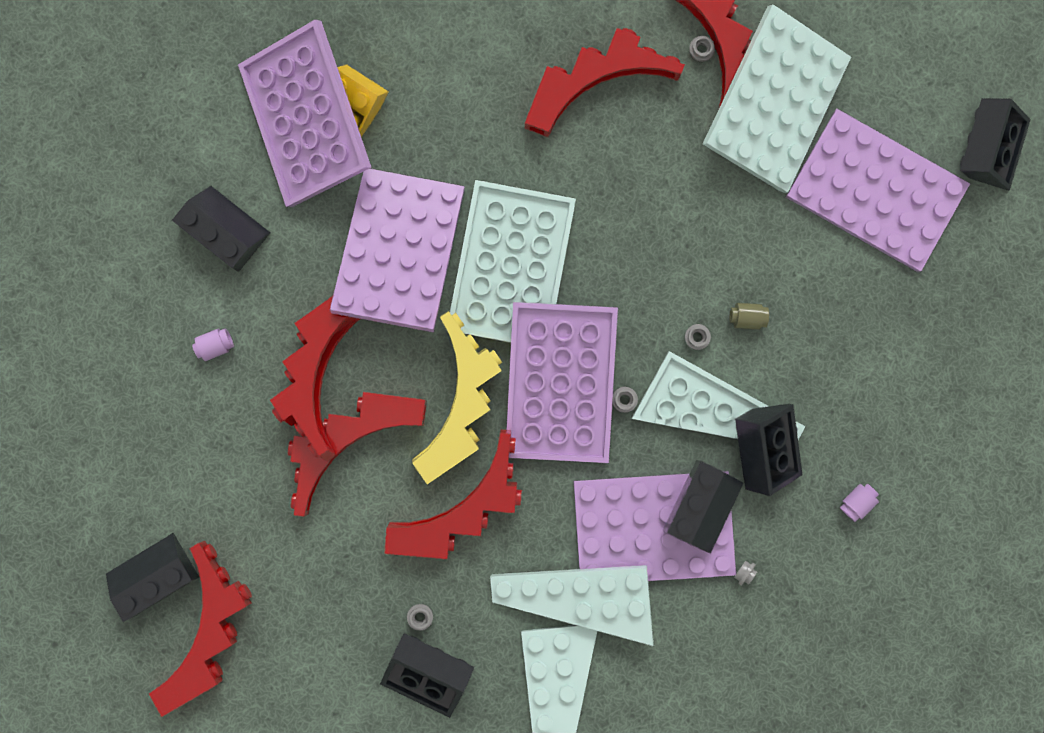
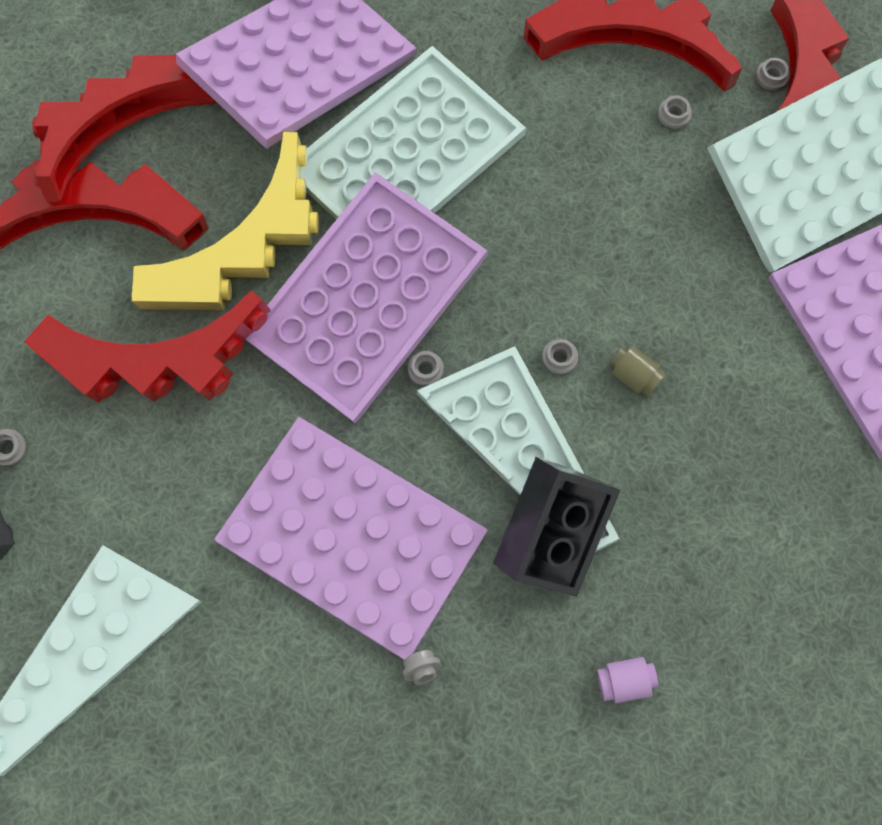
camera: 35 degrees right, 15 degrees down
(213, 344) = (39, 30): lavender brick -> none
(595, 598) = (216, 565): light aqua wing -> none
(658, 112) = (677, 104): none -> light grey plate
(703, 506) = (425, 541): black slope -> none

